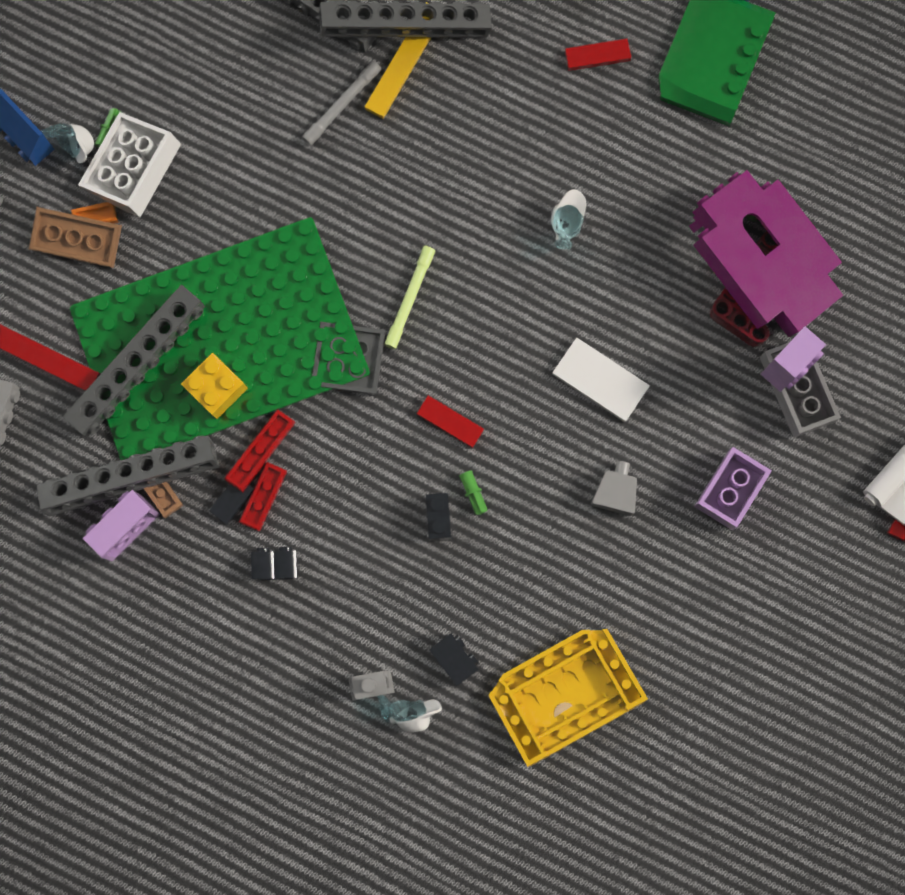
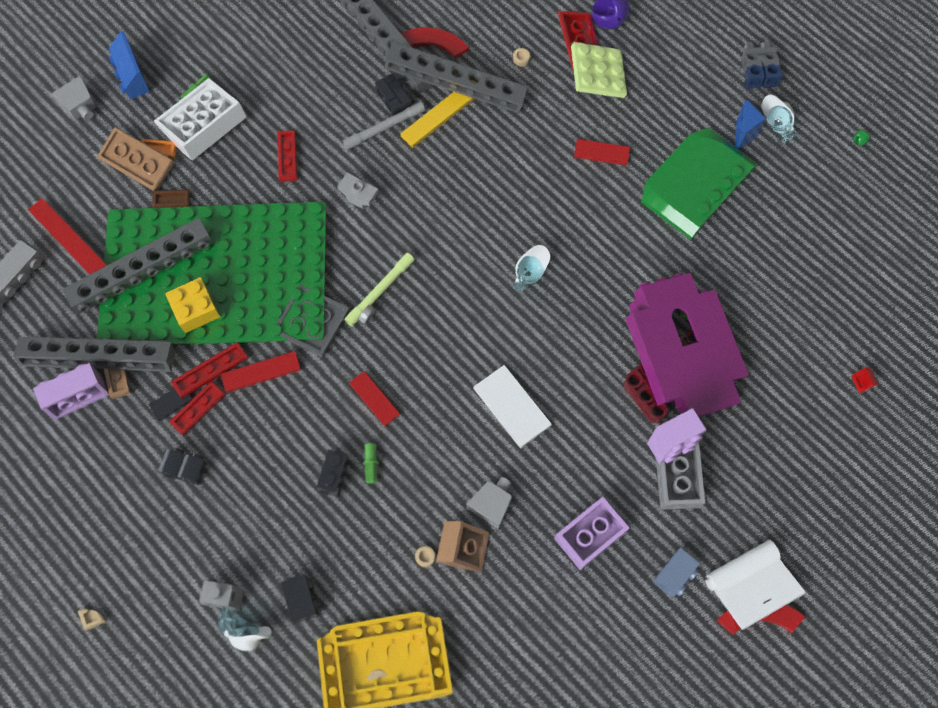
camera: 15 degrees right, 10 degrees down
(72, 139) = (165, 87): hair -> none
(134, 270) = (171, 198): none -> reddish brown tile
(243, 754) = (91, 618): none -> tan tile
(245, 175) = (287, 156): none -> red tile
(316, 433) = (260, 372): none -> red tile
(339, 62) = (393, 94): none -> black brick
(344, 192) = (357, 191): none -> light grey brick
(407, 332) = (367, 314): none -> light grey tile
(567, 571) = (425, 556): none -> tan tile
(602, 547) = (462, 546): none -> medium nougat slope
(832, 499) = (676, 573): none -> sand blue brick

